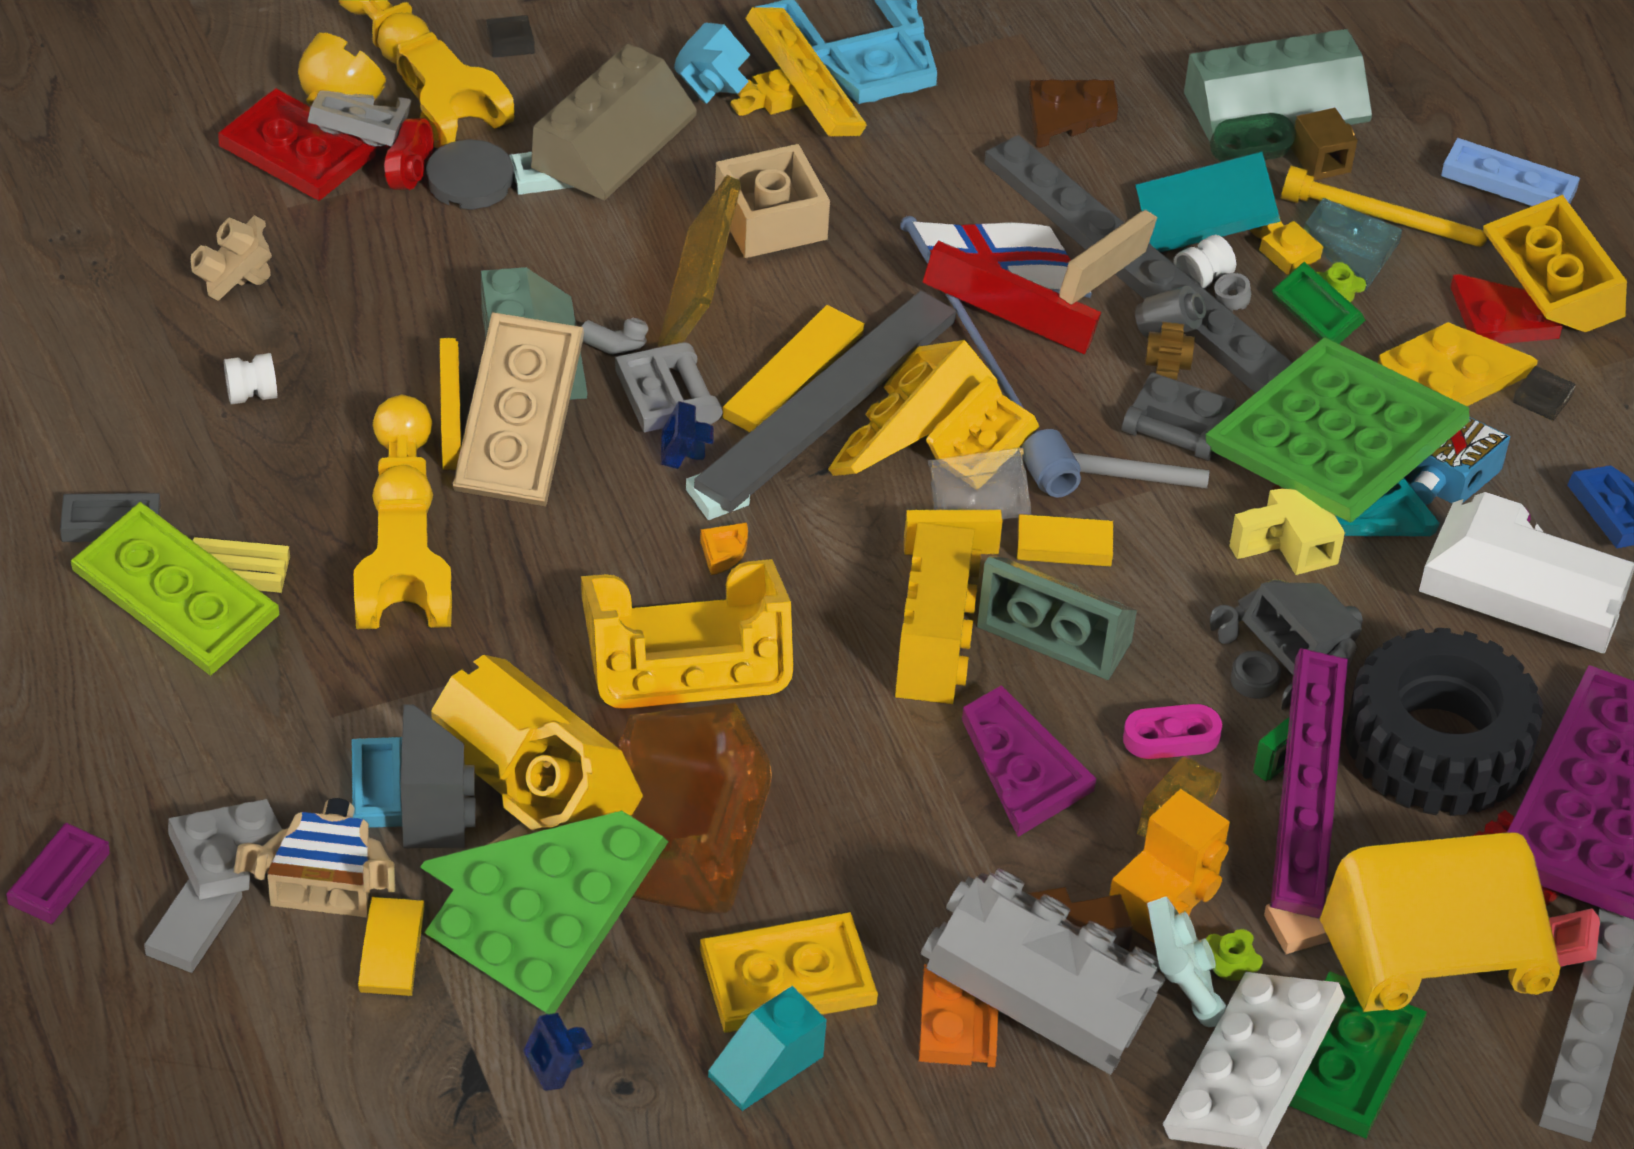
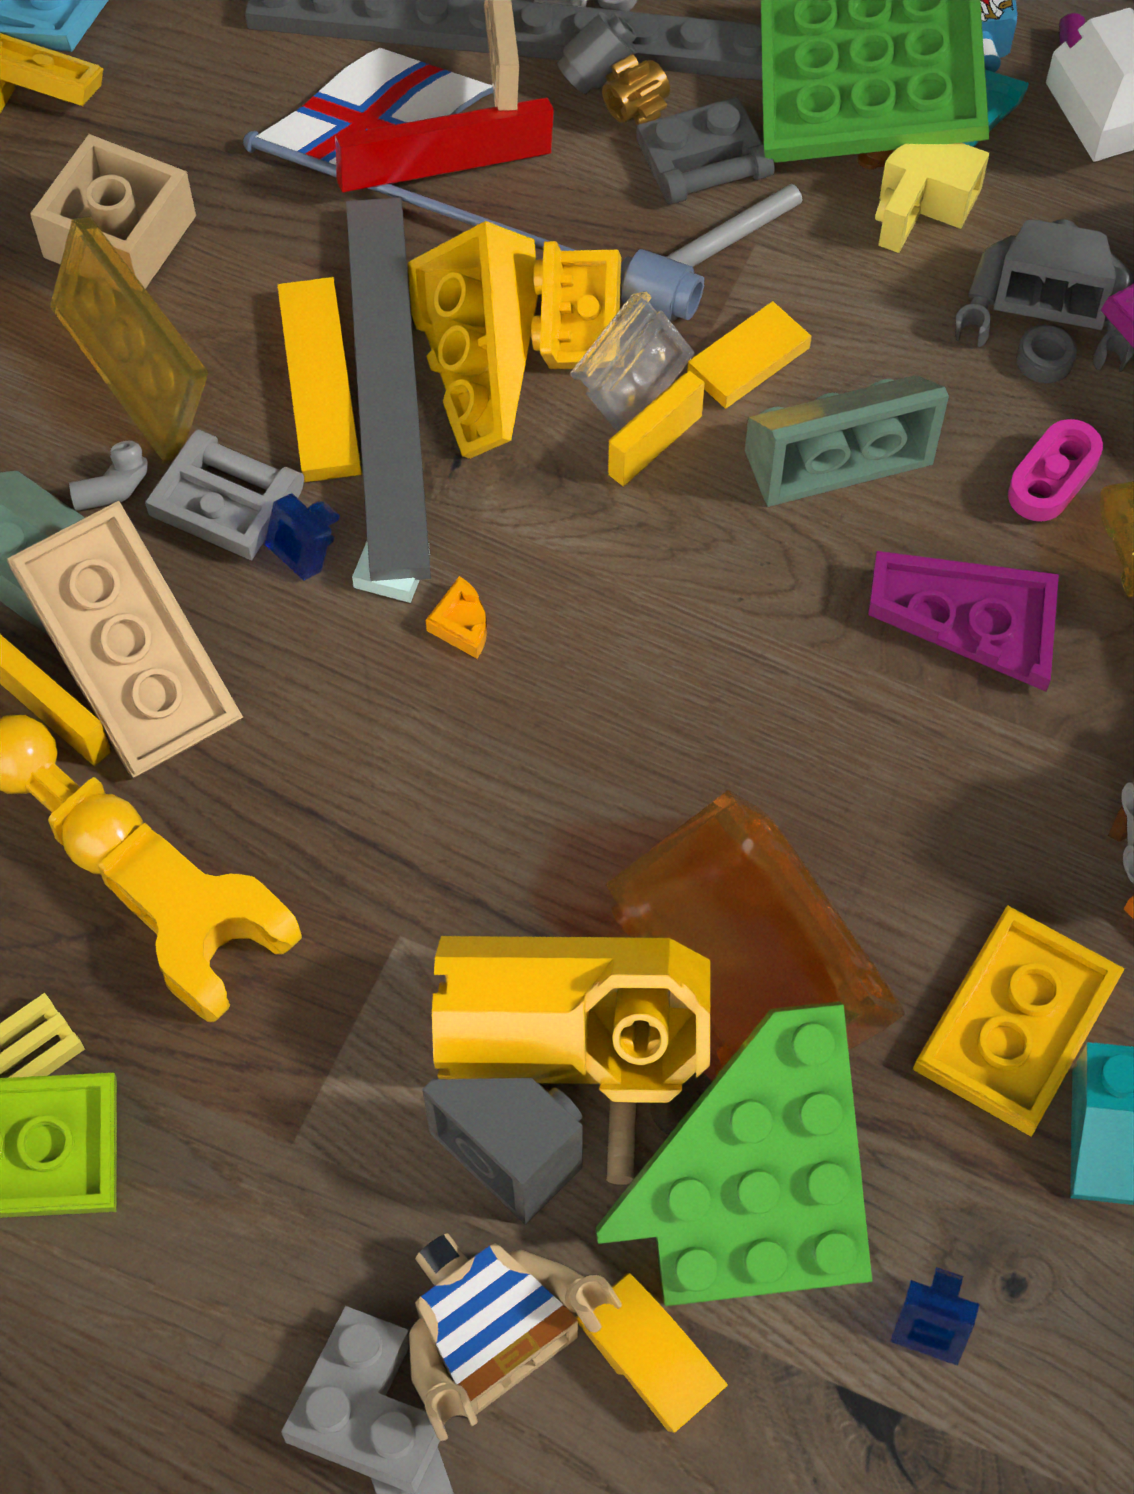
camera: 40 degrees left, 15 degrees up
(377, 781) = (425, 1176): medium azure tile -> none
(694, 647) = (557, 747): yellow windscreen -> none
(935, 614) = (742, 523): yellow wedge -> none

